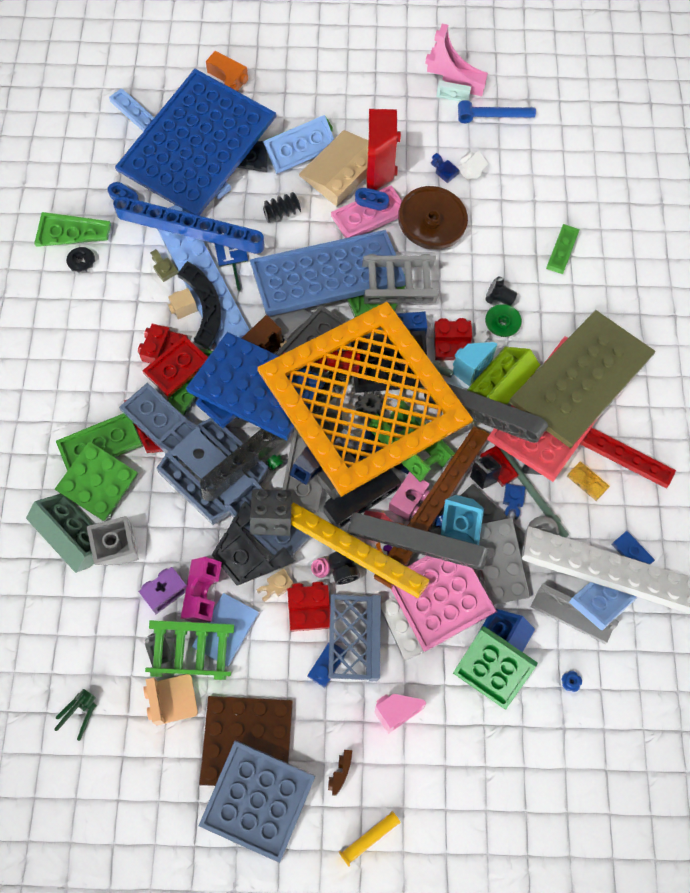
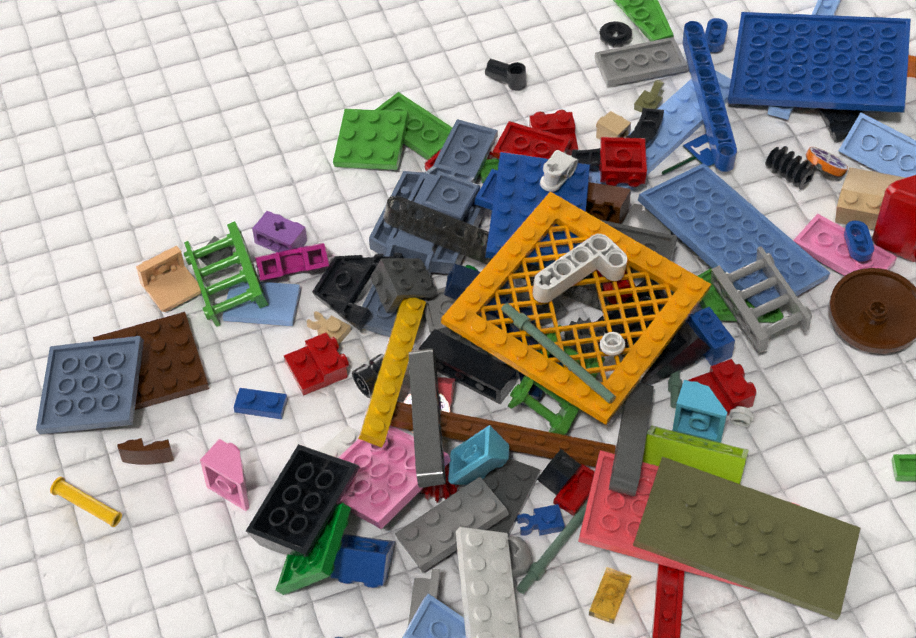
camera: 70 degrees right, 15 degrees down
(64, 529) = (307, 140): sand green slope -> none
(80, 352) = (512, 73): none -> black piece
(83, 701) = (141, 216): dark green plant -> none
(112, 542) = (310, 173): light grey slope -> none
(121, 256) = (640, 61): none -> light grey plate
(206, 443) = (450, 195): none -> sand blue tile
(227, 309) = (623, 161): none -> red plate
(232, 354) = (557, 171): none -> white piece
(288, 183) = (828, 161): none -> tile
(320, 567) = (364, 355): bright pink plate -> none
(344, 382) = (578, 264): none -> white beam
(372, 641) = (300, 432): sand blue fence -> none
(374, 437) = (524, 323): none -> sand green bar
(401, 504) = (481, 402): bright pink brick -> none
(418, 382) = (612, 344): none -> white plate
(456, 659) = (301, 501): none -> black slope
(501, 293) = (816, 415): black gear -> none
(505, 314) = (781, 424): green dish -> none

